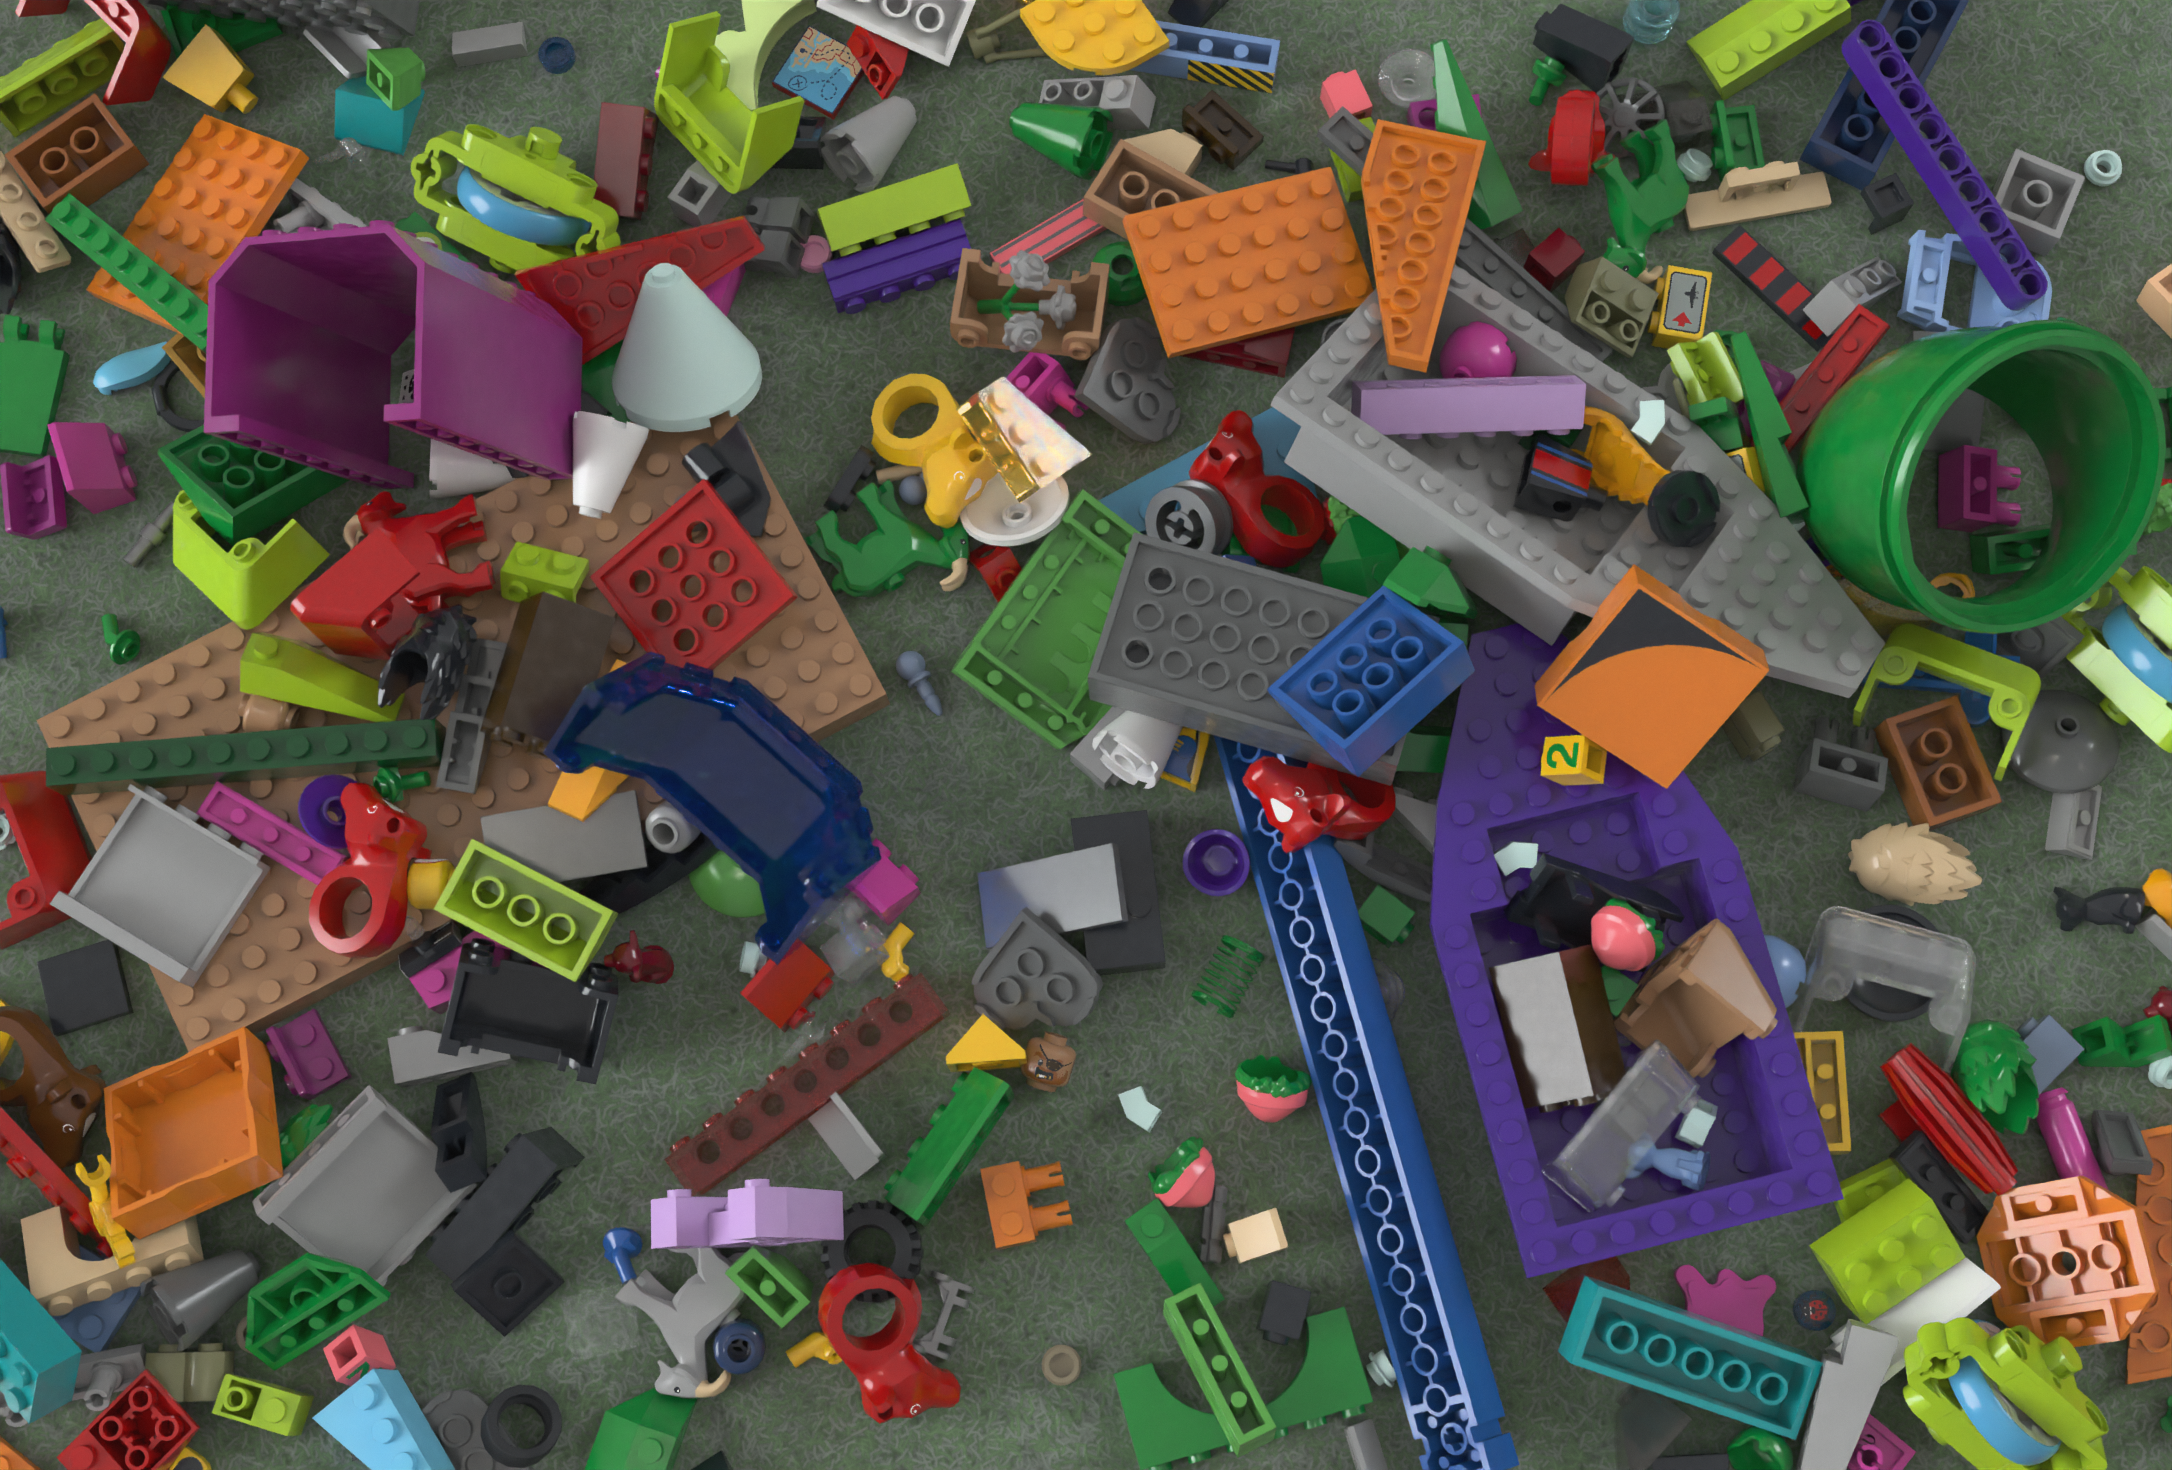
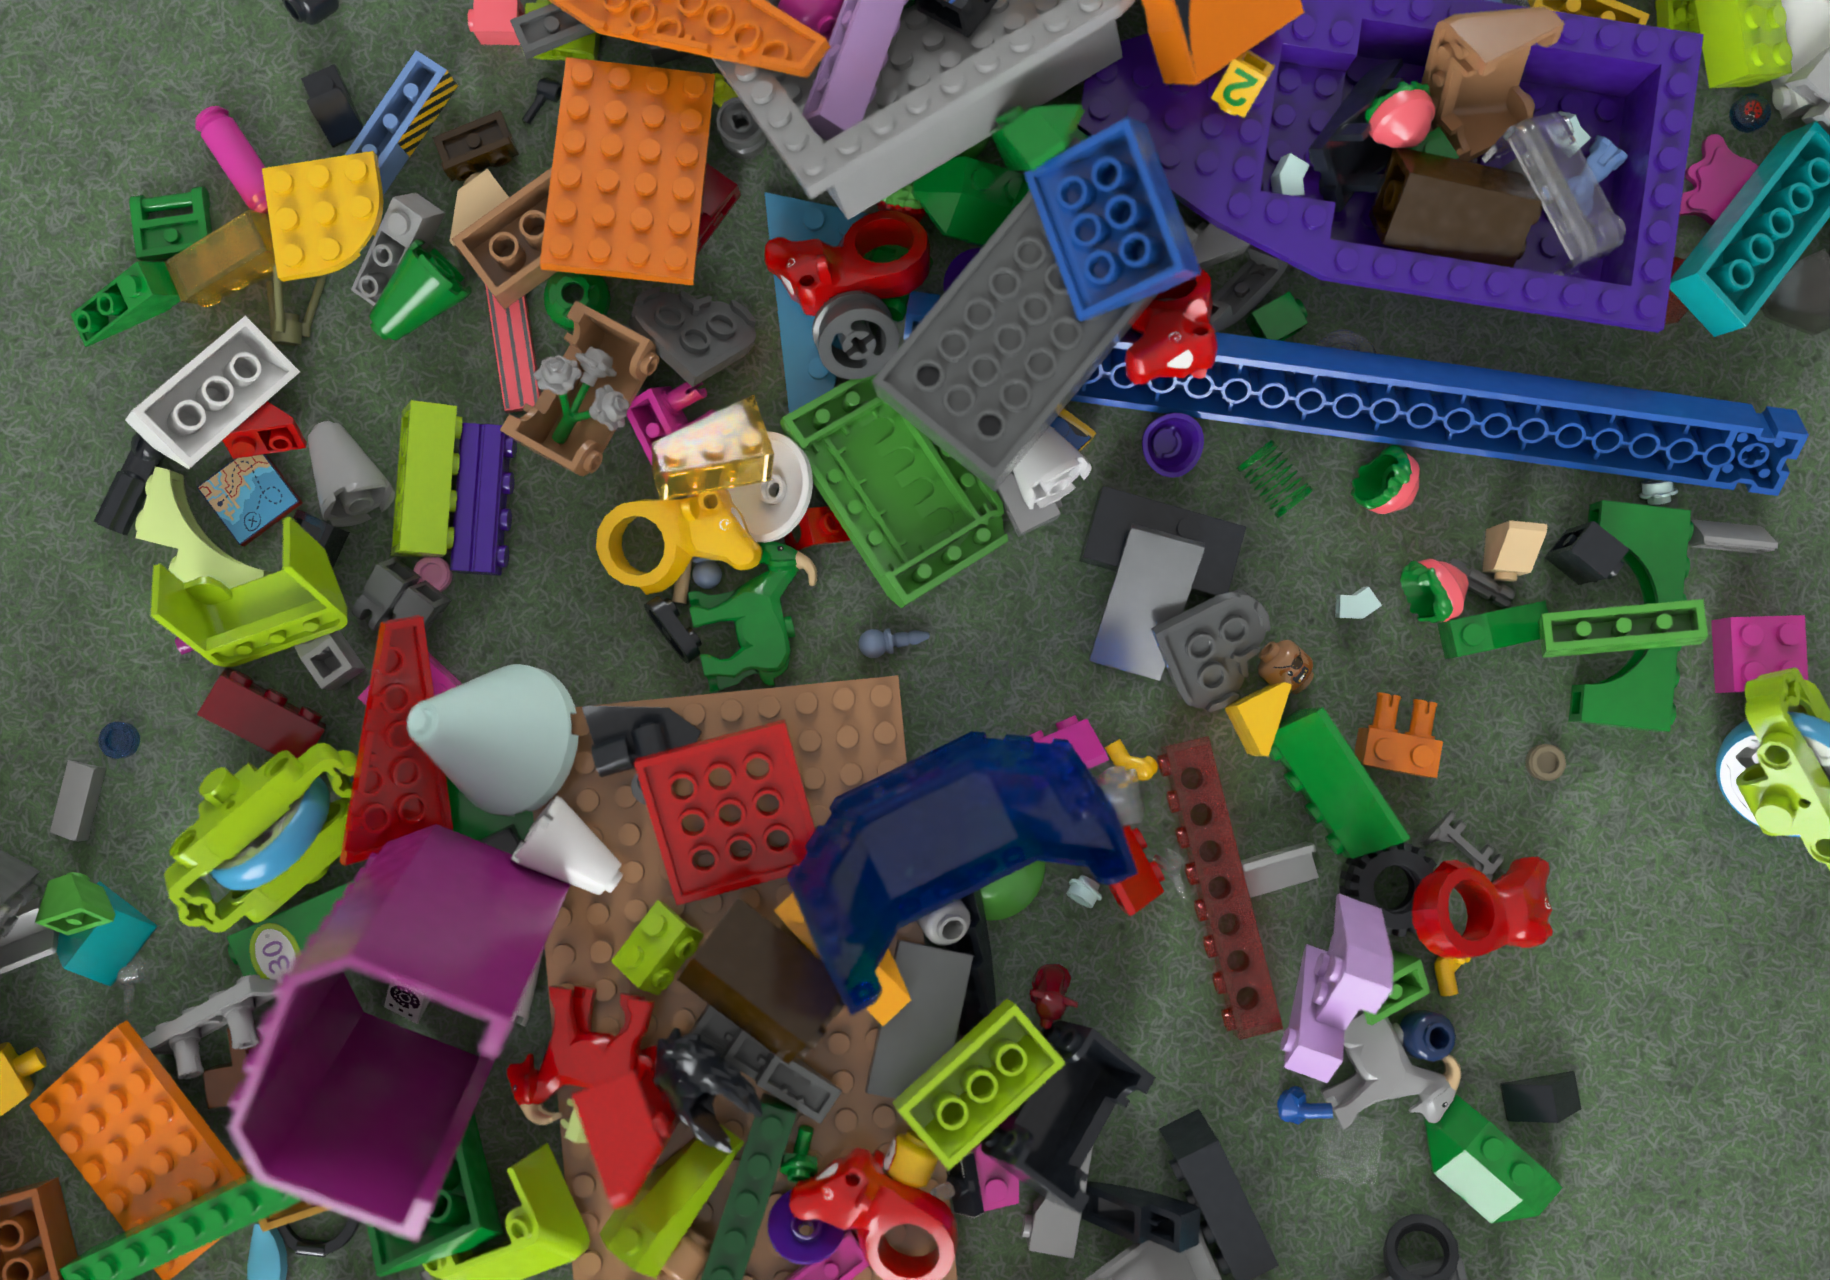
camera: 75 degrees left, 10 degrees up
(507, 1283) = (1290, 1220): black tile -> none

